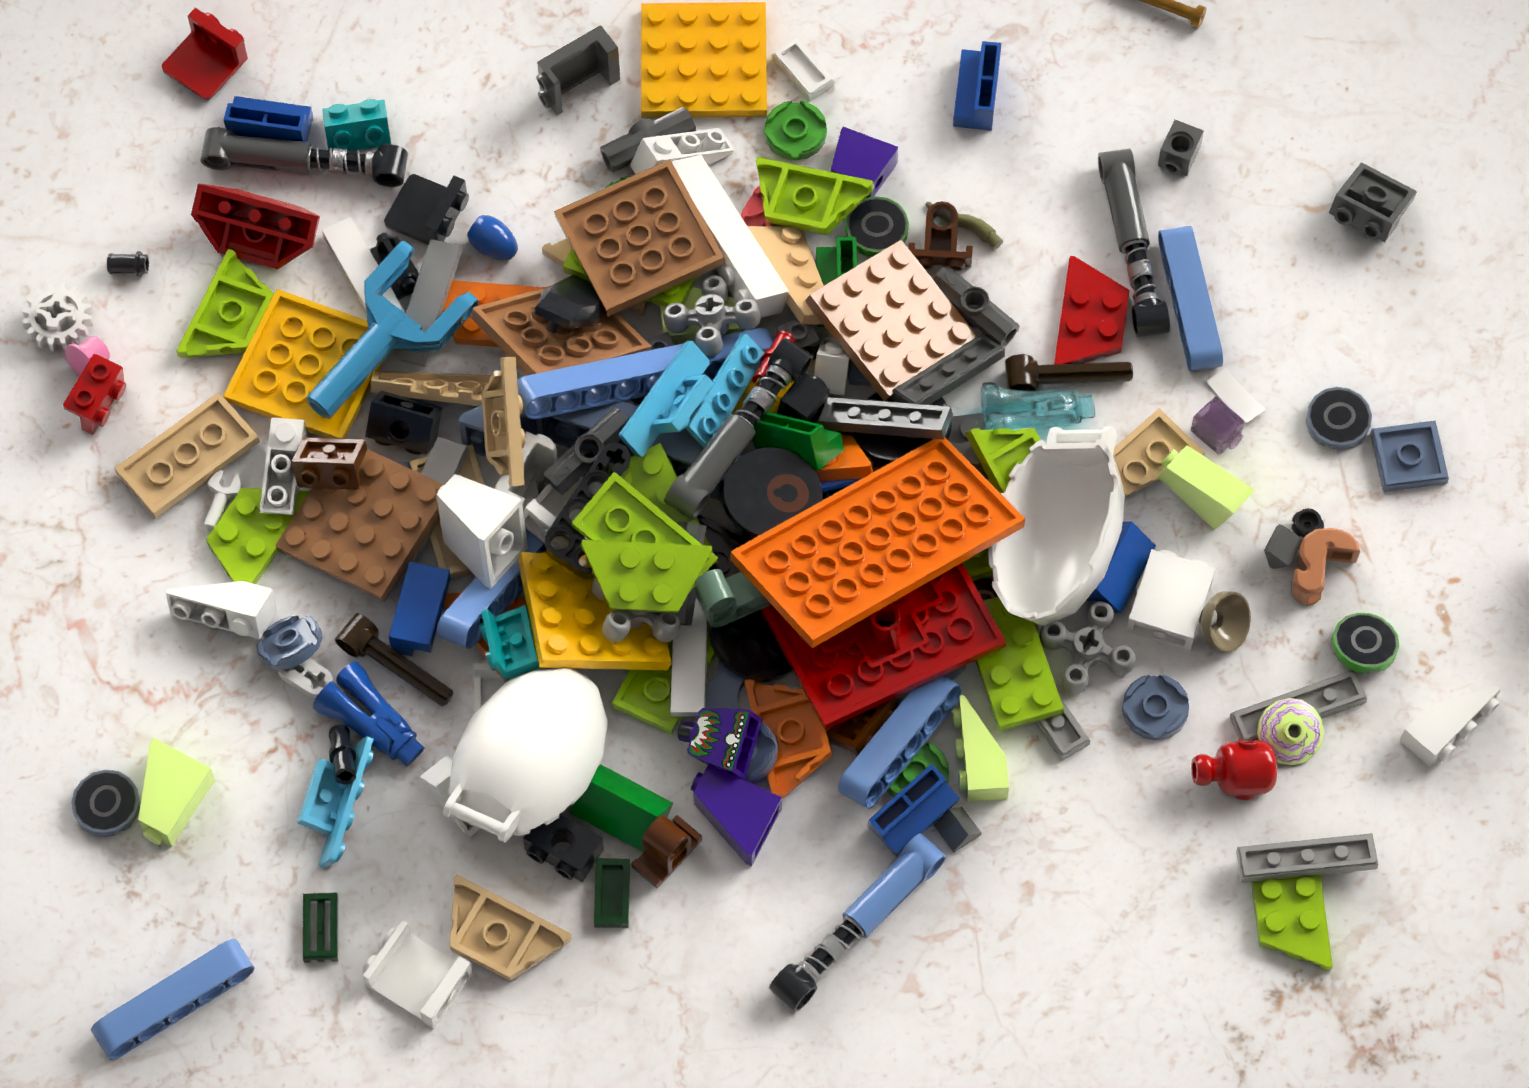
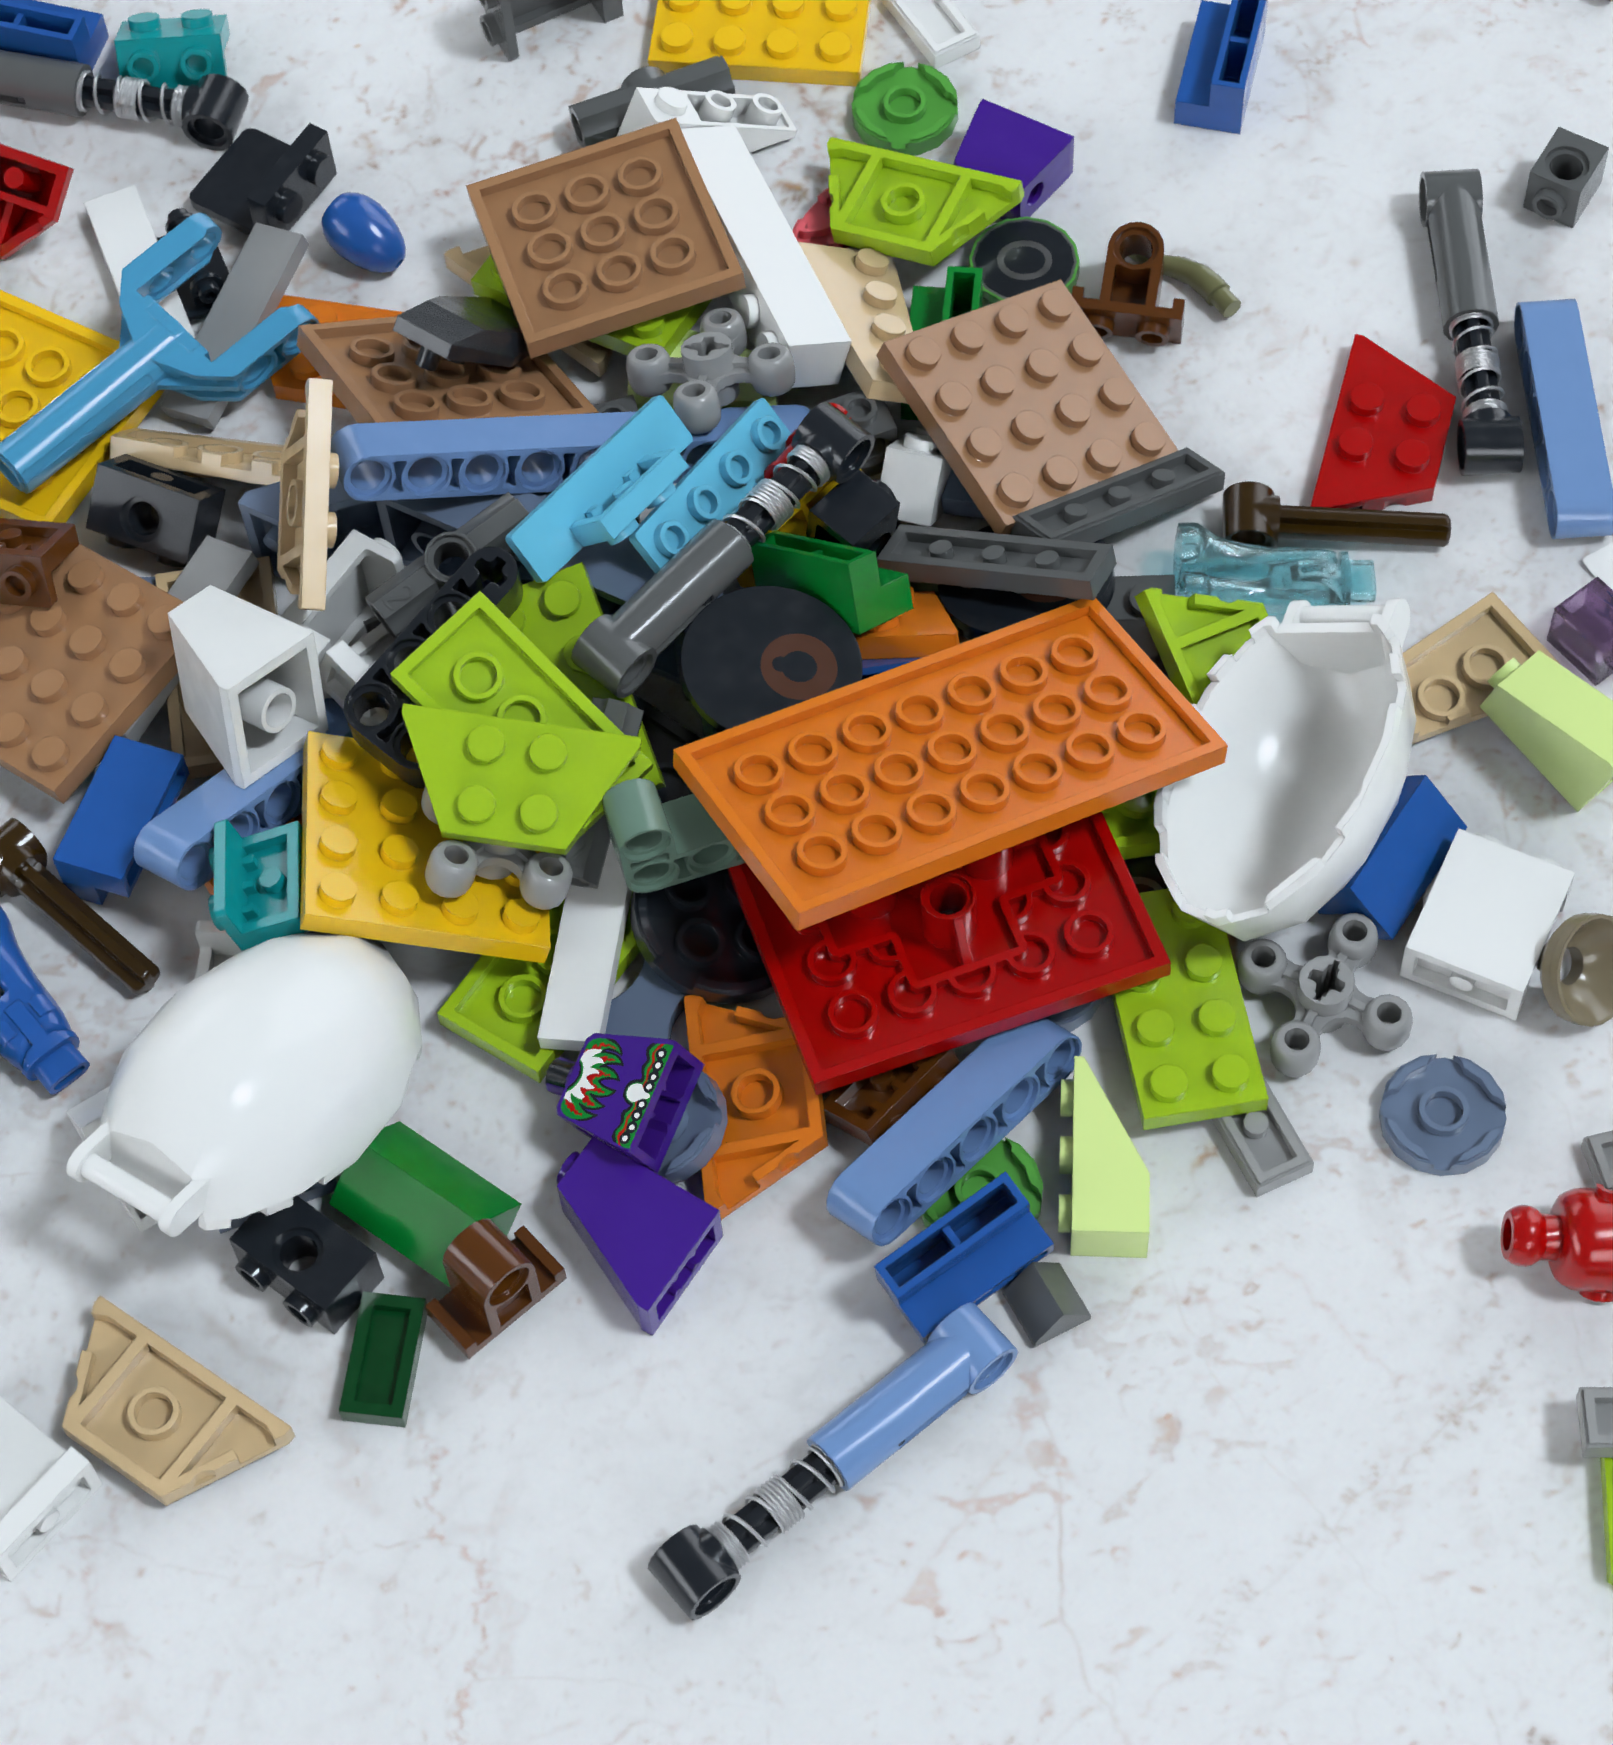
camera: 10 degrees right, 5 degrees down
(987, 318) = (1181, 403): dark grey piece -> none

